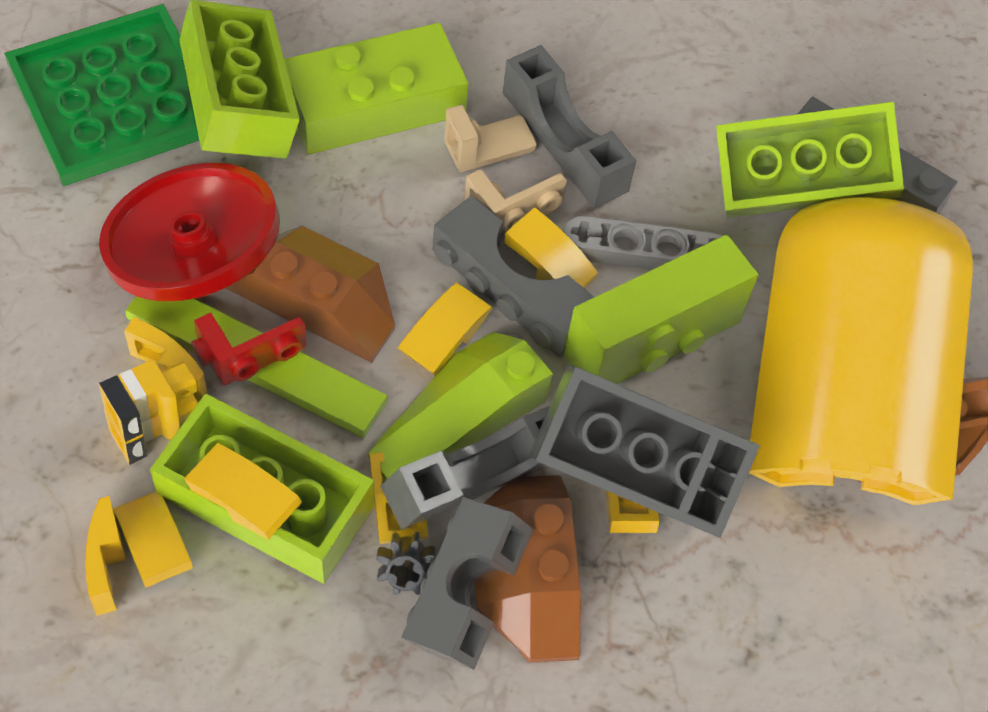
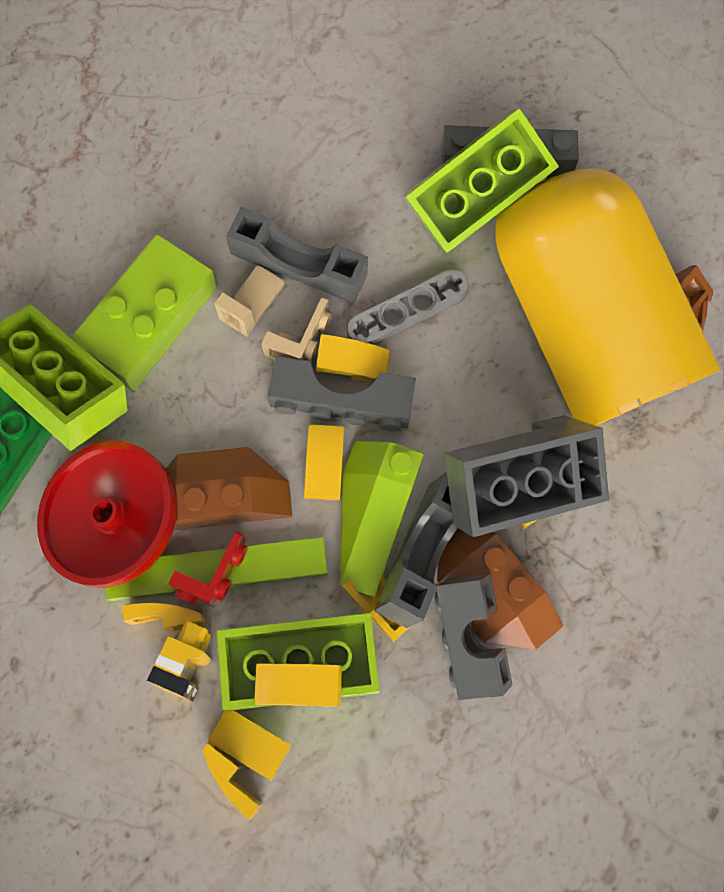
camera: 30 degrees left, 15 degrees up
(403, 549) = (422, 646): black gear -> none
(661, 312) = (459, 360): lime brick -> none

